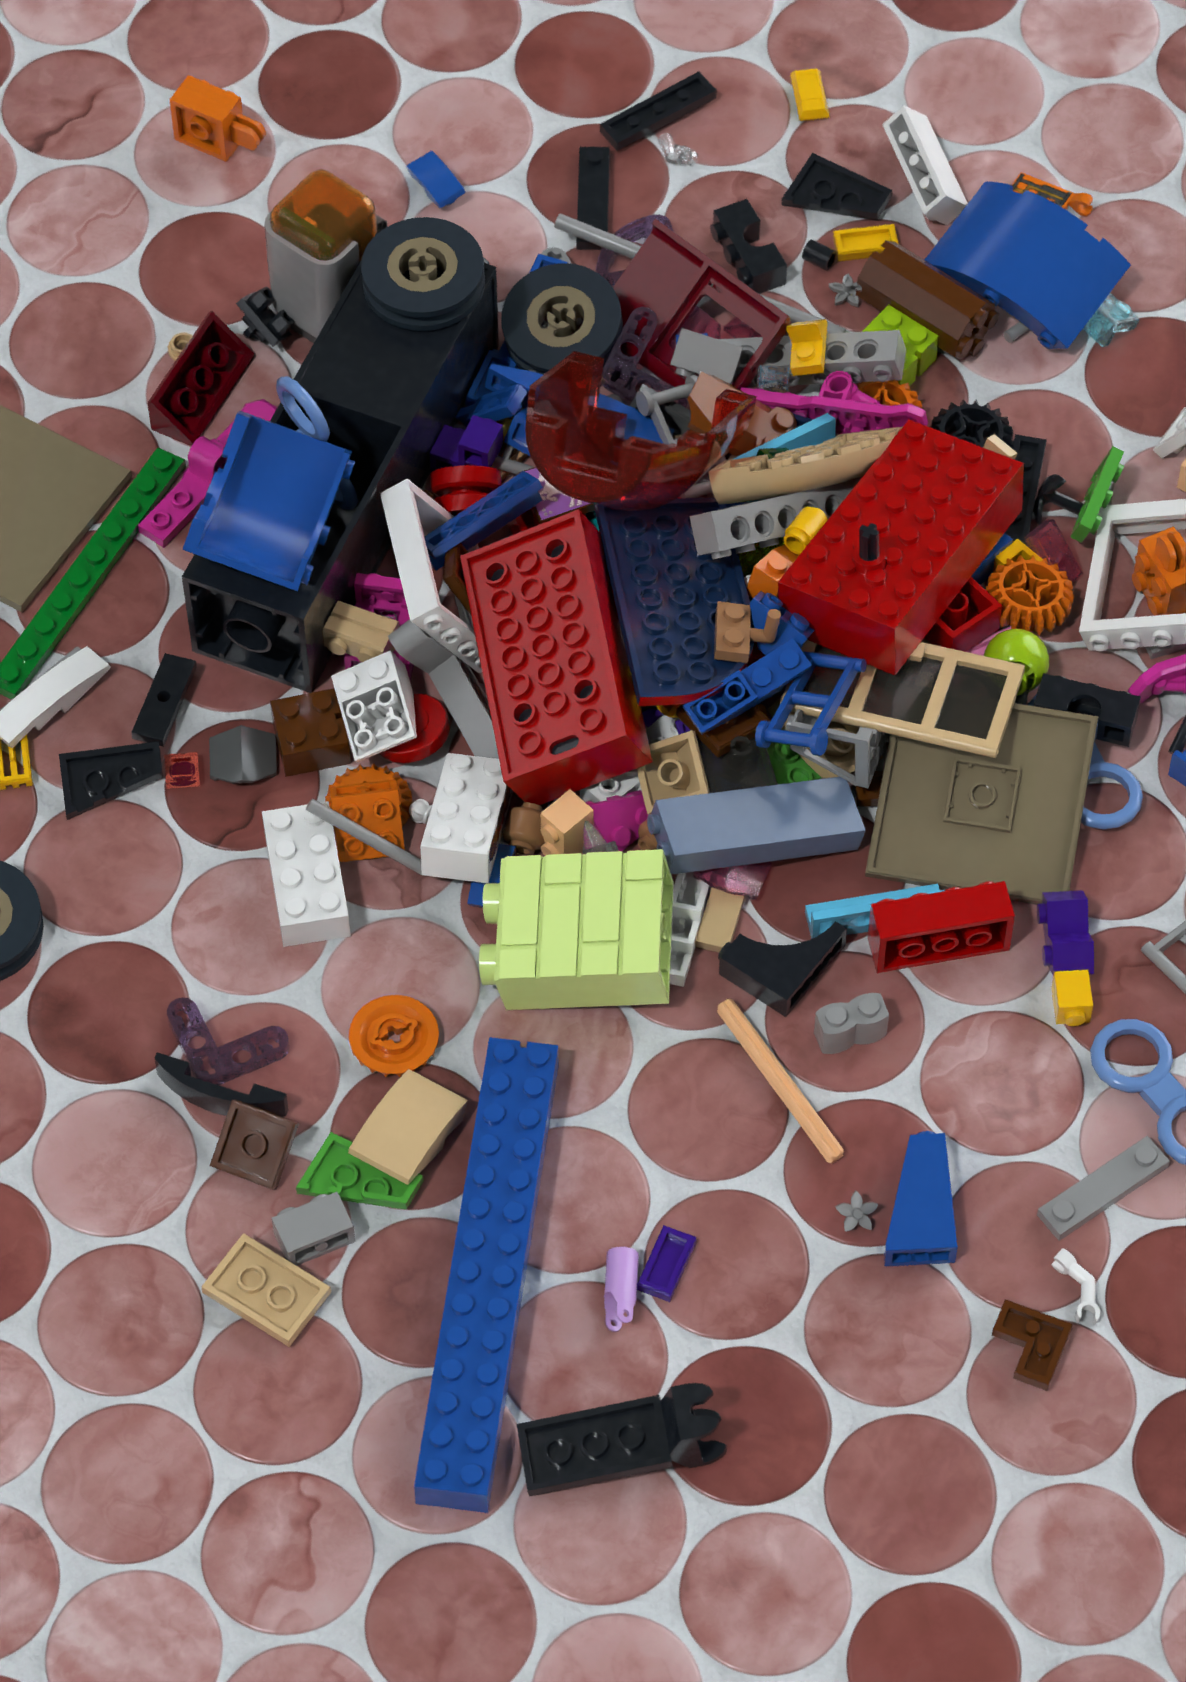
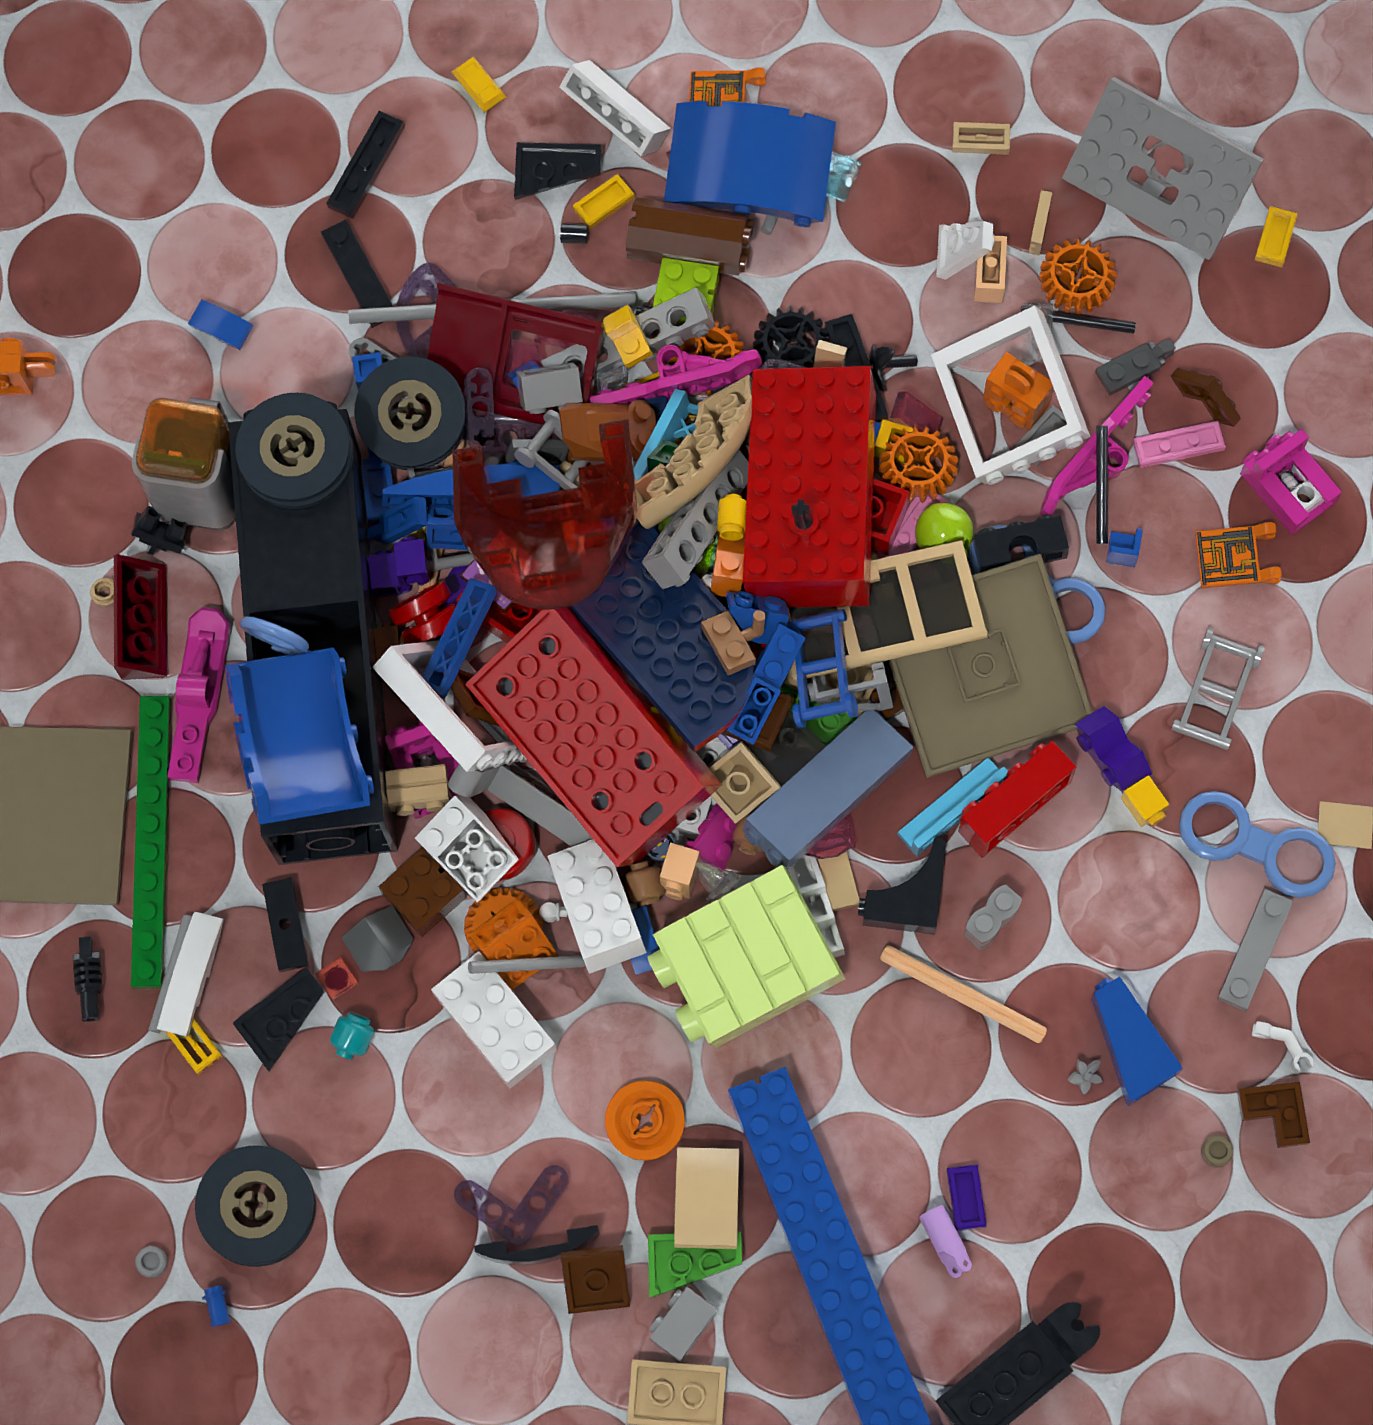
camera: 25 degrees left, 15 degrees up
(163, 821) = (351, 1035): none -> teal head
(676, 154) = (404, 197): clear arm -> none
(756, 266) = (531, 273): black arch -> none
(845, 291) = (614, 255): light grey plant -> none
(948, 1350) = (1217, 1151): none -> dark tan tile
(1098, 494) = (922, 341): bright green wing -> none

